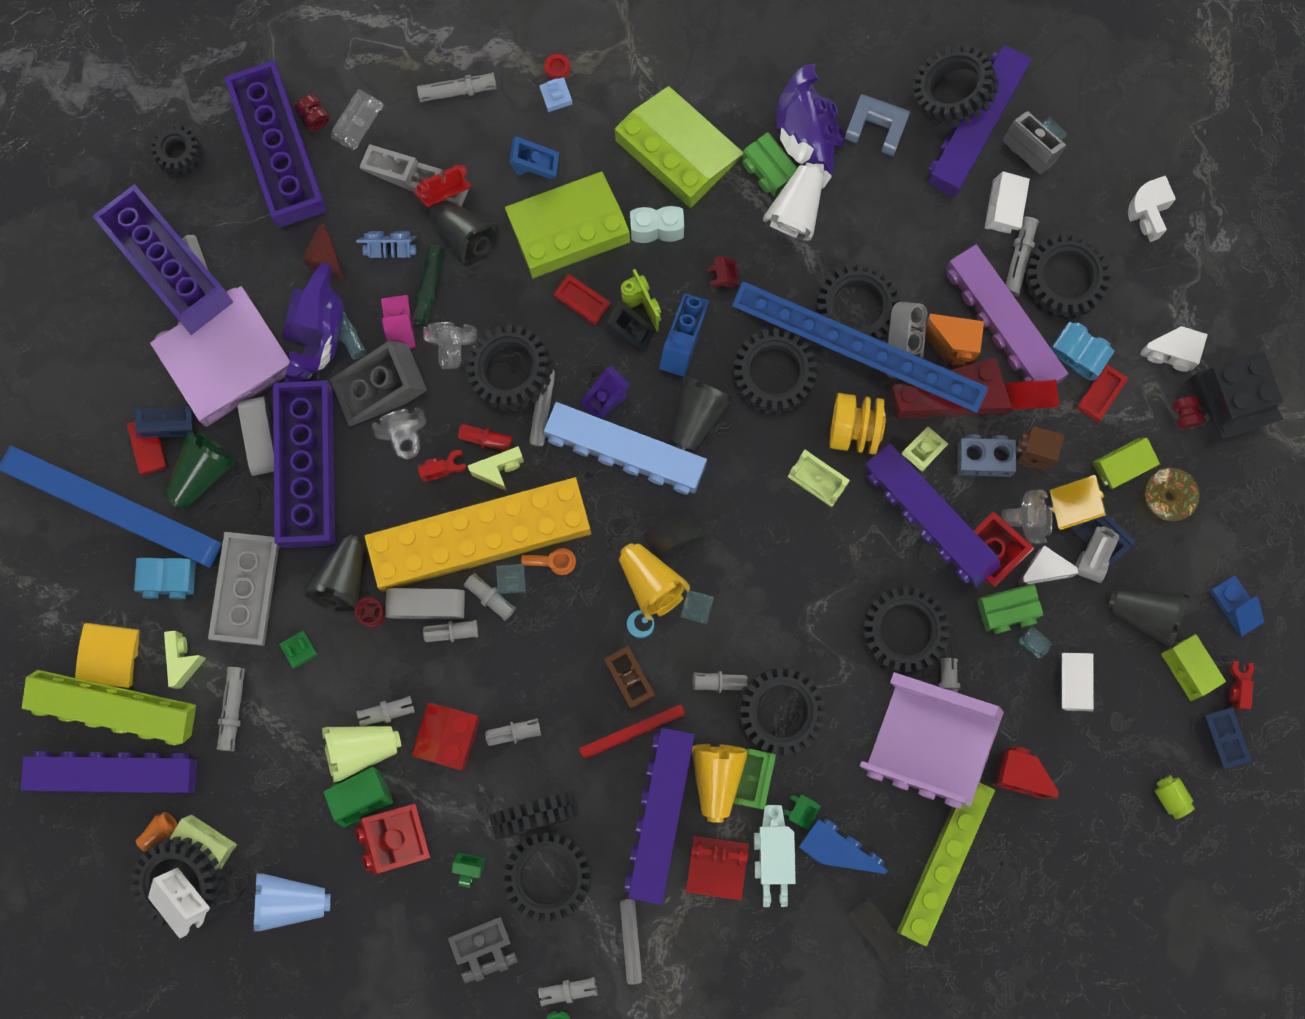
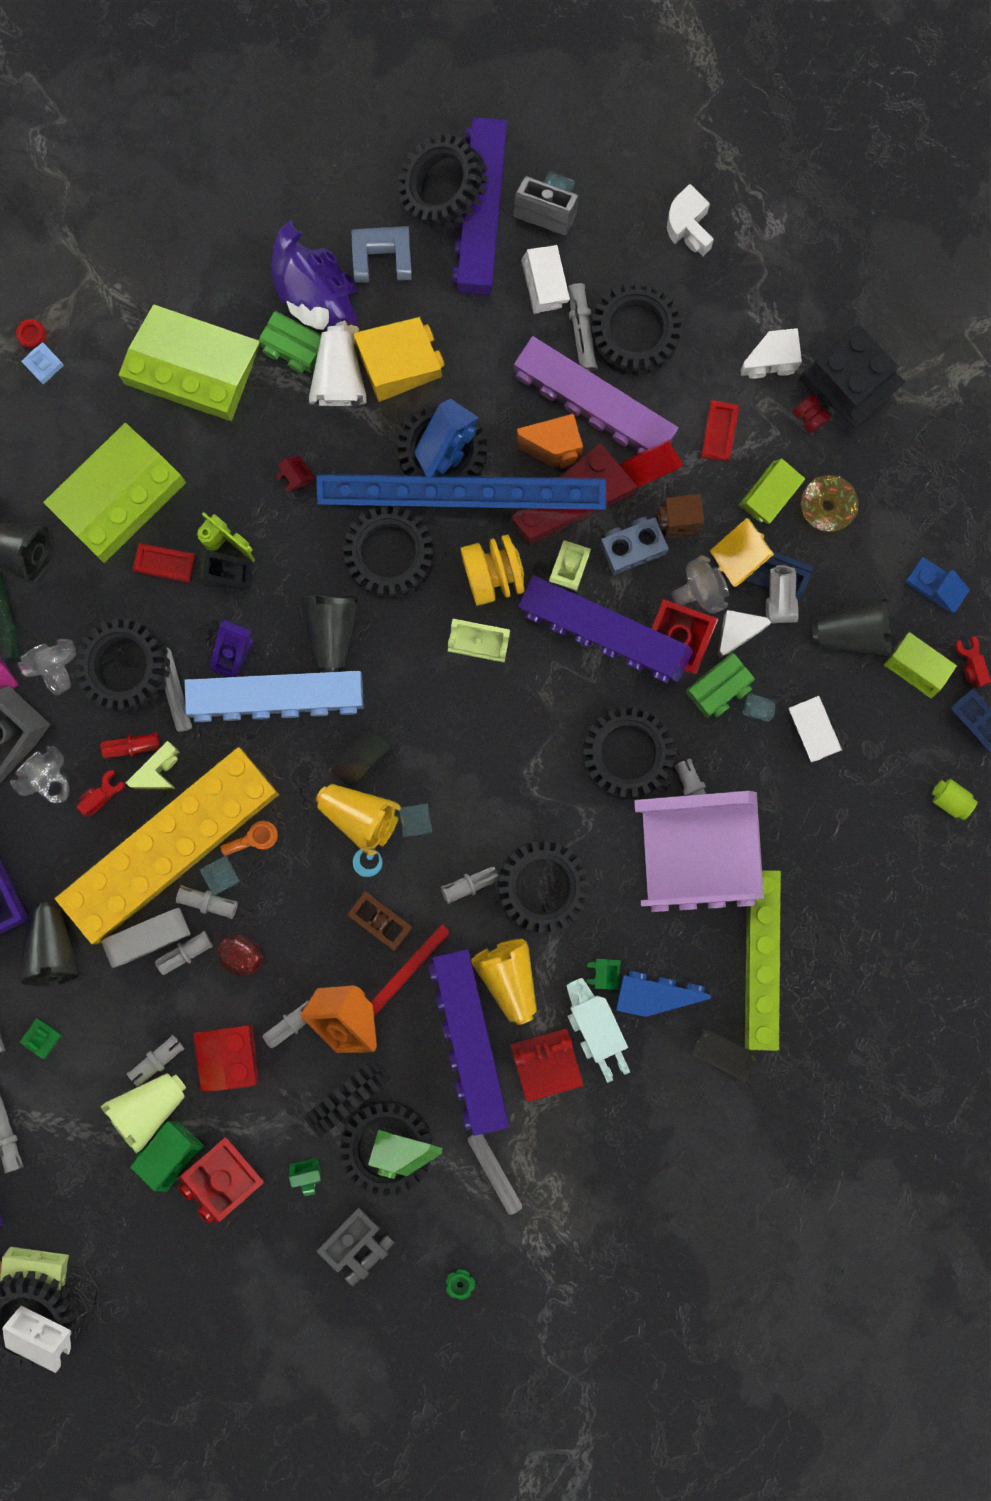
camera: 25 degrees left, 5 degrees up
(286, 902) = (143, 1289): light blue cone -> none
(365, 612) = (90, 969): dark red wheel -> none
(497, 654) = (240, 955): none -> clear red head
(533, 158) = (49, 440): blue slope -> none
(558, 886) = (400, 1154): none -> bright green slope
(560, 747) = (342, 1019): none -> orange slope
(568, 991) = (455, 1248): light grey pin -> none
(660, 224) = (211, 450): light aqua brick -> none
(683, 335) = (282, 554): blue slope -> none
(755, 779) = (546, 964): bright green hinge -> none
(854, 214) = (398, 357): none -> yellow slope
(865, 296) = (445, 438): none -> blue slope
(908, 328) = (502, 451): light grey beam -> none
(1023, 774) = (800, 842): red slope -> none
(1082, 351) = (682, 398): dark azure brick -> none

